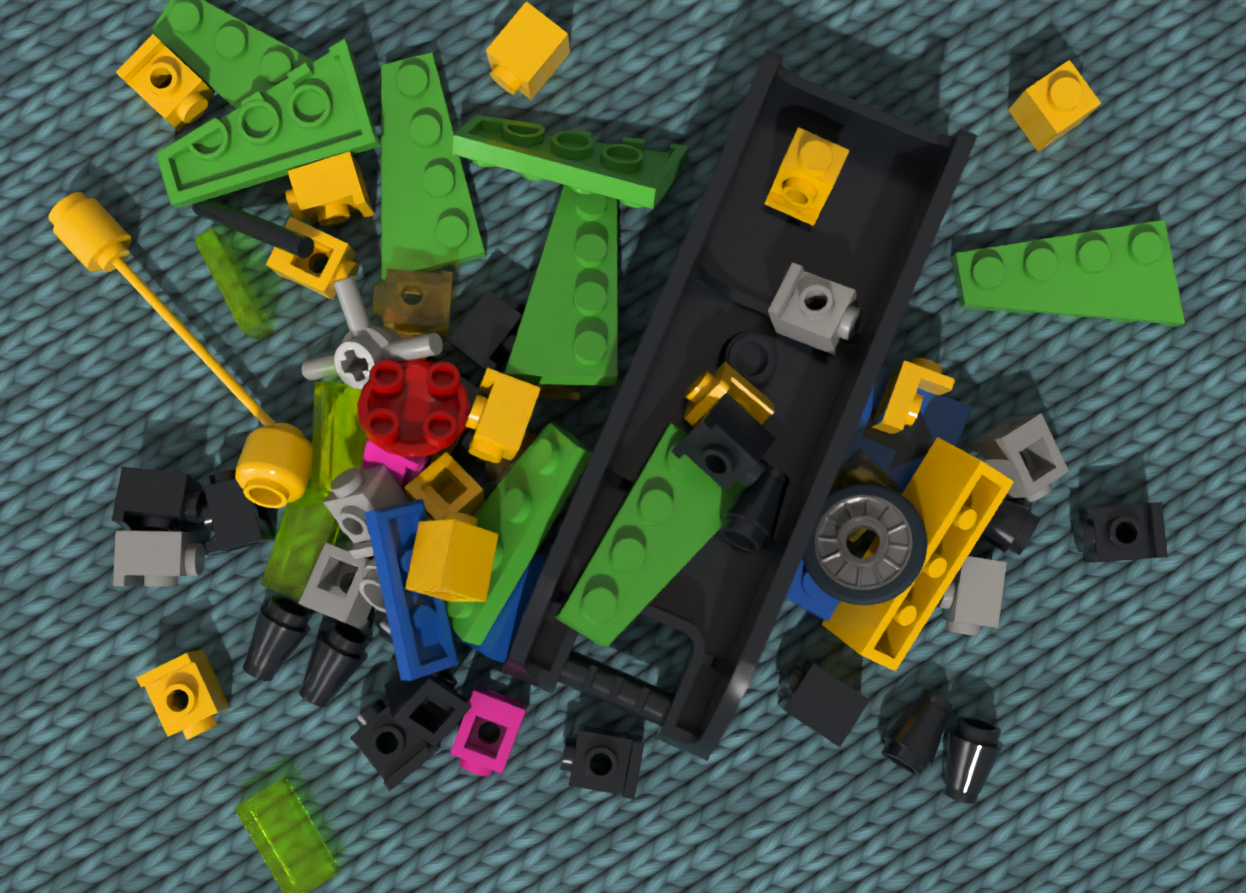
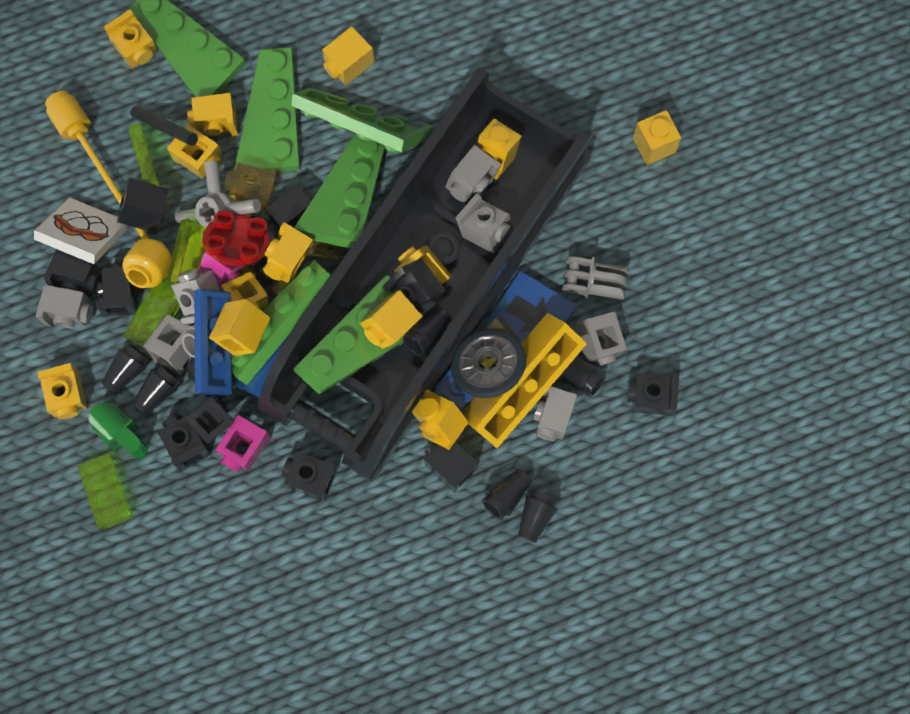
camera: 10 degrees right, 10 degrees down
(155, 426) = (80, 230): none -> white tile
(248, 367) = (143, 205): none -> black brick
(286, 742) = (116, 429): none -> green arm
(292, 124) = (205, 71): bright green wing -> none
(697, 509) = (390, 320): none -> yellow brick
(778, 229) = (472, 174): none -> light grey brick
(803, 650) = (439, 419): none -> yellow brick
(900, 401) = (530, 288): yellow bracket -> none
(990, 358) = (602, 279): none -> light grey arm
(1092, 274) = (655, 239): bright green wing -> none

